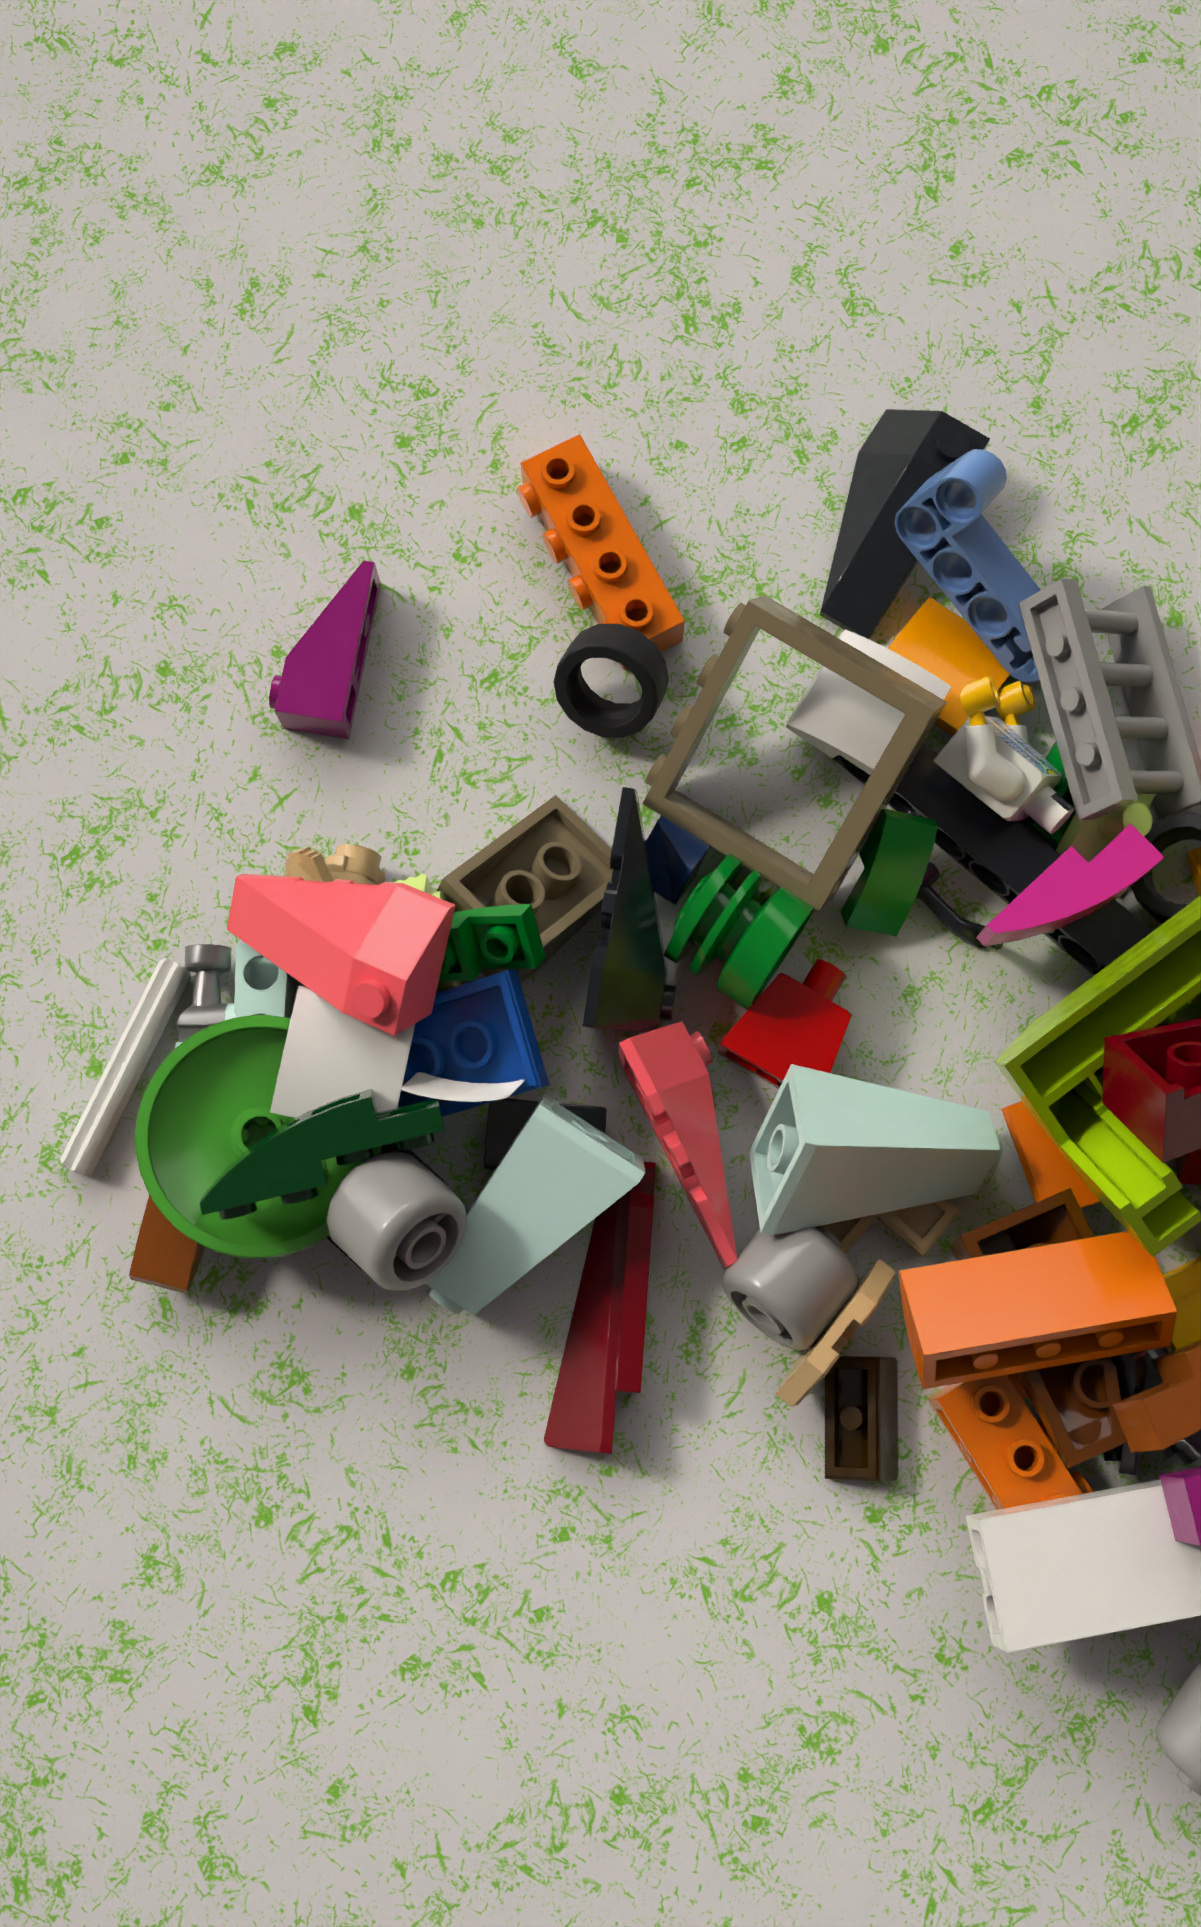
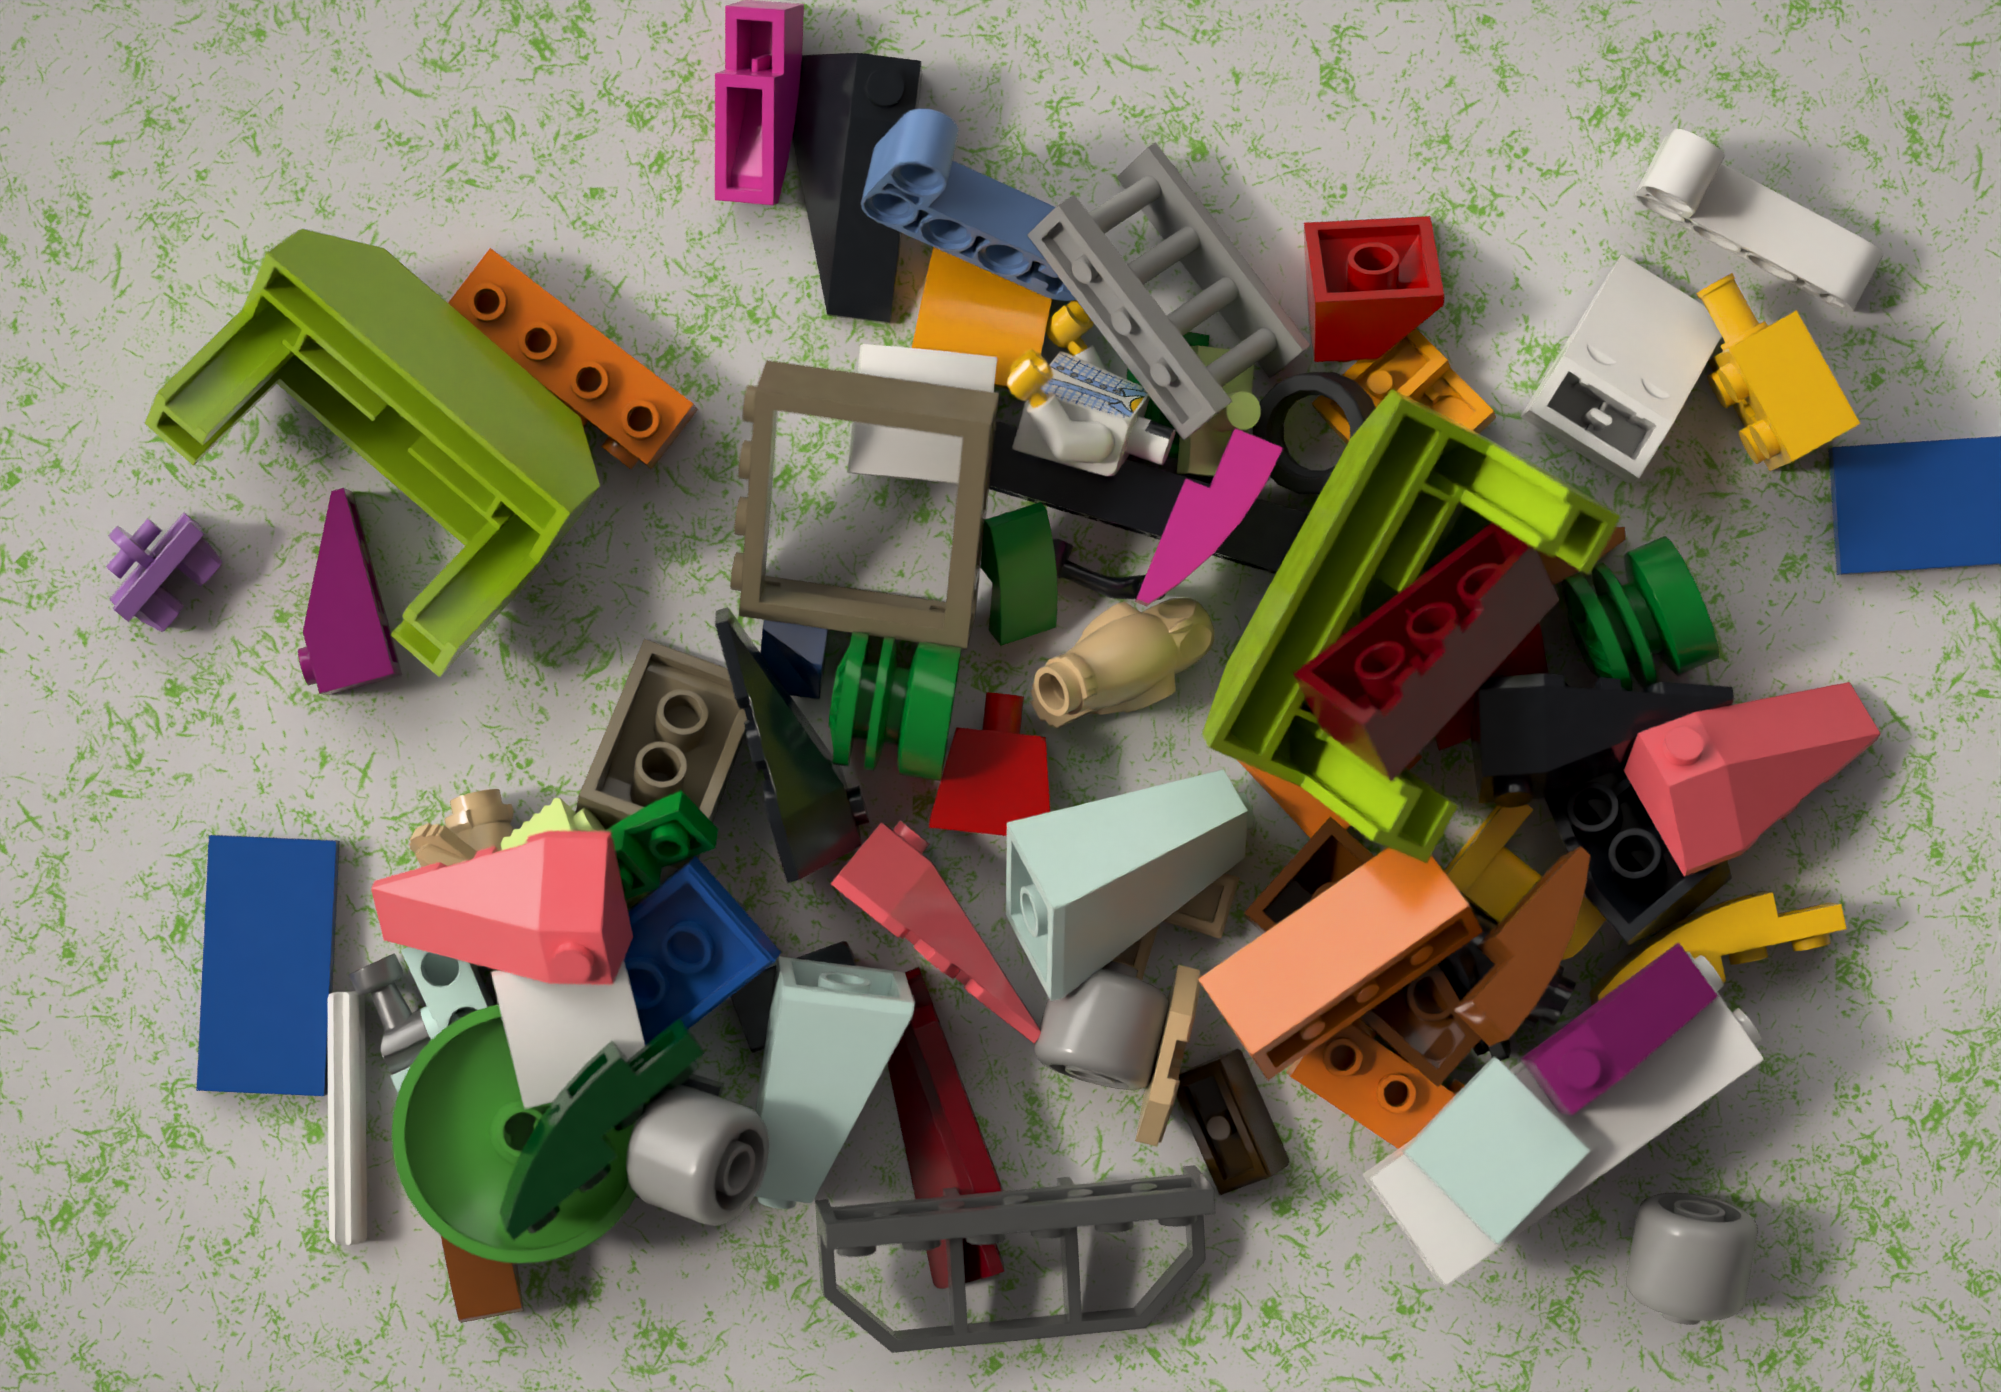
camera: 30 degrees left, 10 degrees up
(125, 914) = (267, 965): none -> blue tile
(177, 579) = (142, 590): none -> medium lavender hips
(450, 1090) = (697, 1001): white sticker -> none
(460, 513) = (415, 400): none -> lime wedge
(588, 708) = (654, 533): black tyre -> none
(618, 1398) = (986, 1220): none -> dark grey plate
(842, 421) = (757, 99): none -> dark pink slope
(940, 984) = (1123, 661): none -> tan animal
(1106, 1548) = (1496, 1150): none -> light aqua tile

